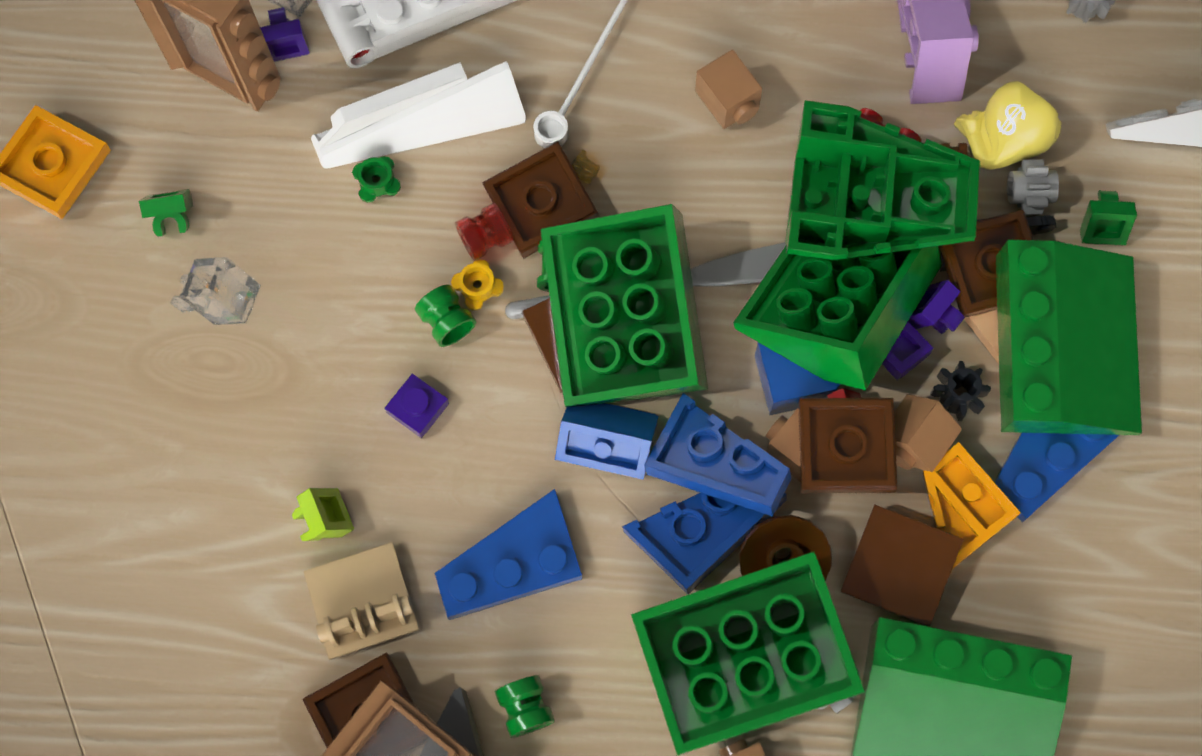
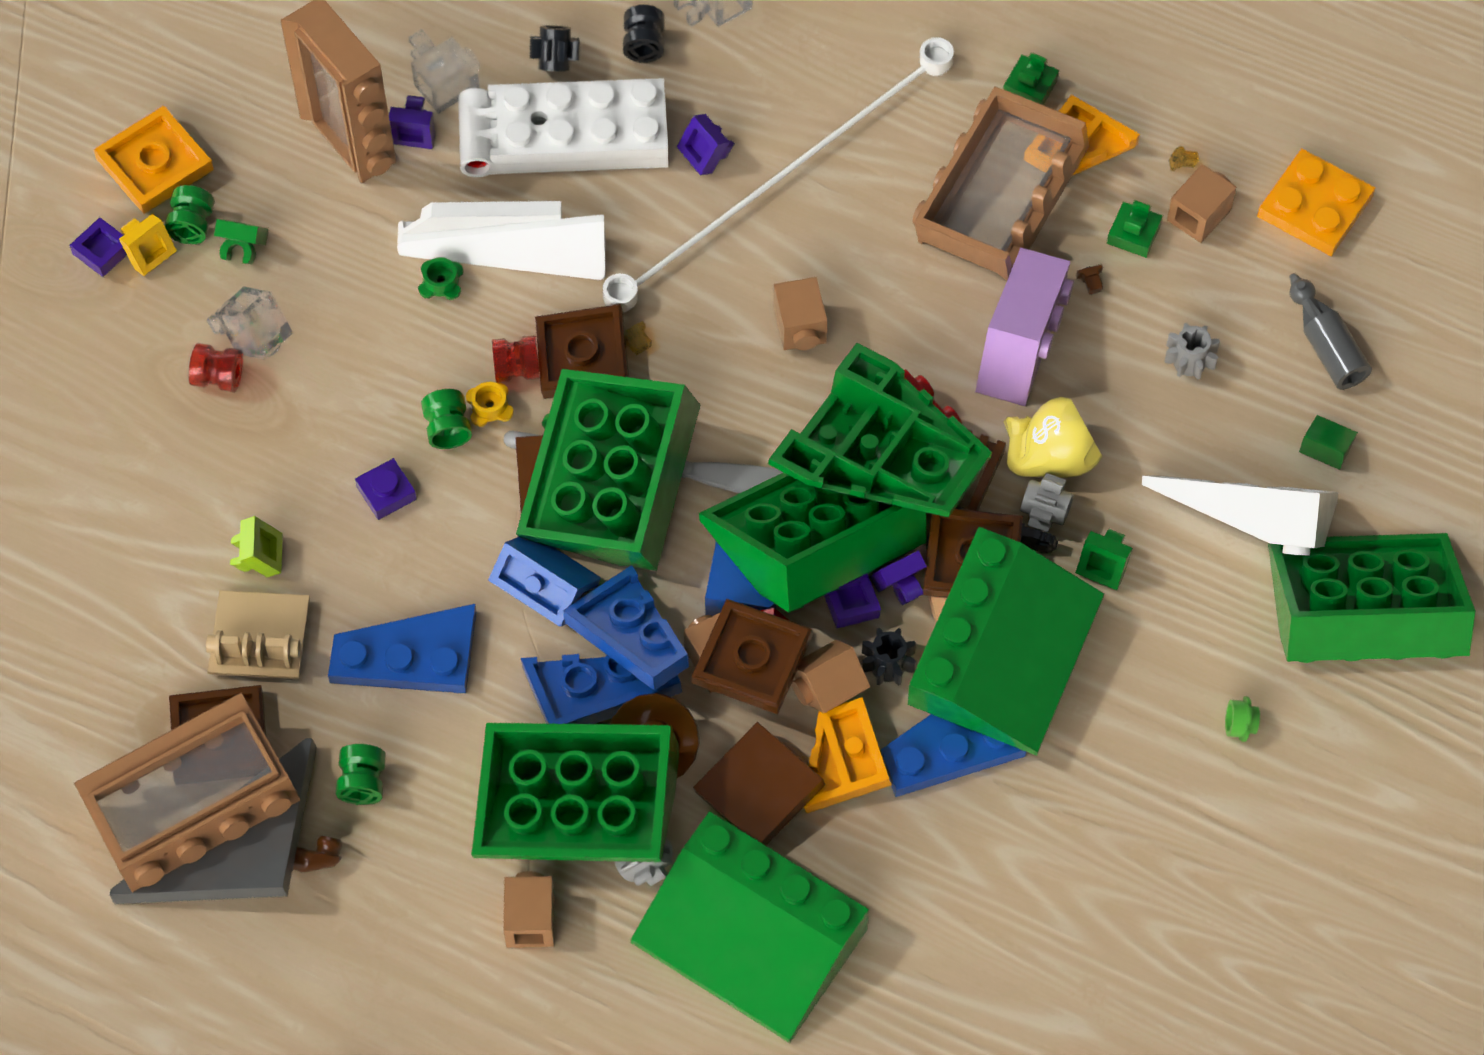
camera: 20 degrees right, 10 degrees down
(35, 268) = (99, 247): none -> dark purple plate
(78, 248) = (146, 243): none -> yellow tile
(107, 204) = (189, 214): none -> green wheel
(201, 348) = (215, 367): none -> clear red wheel

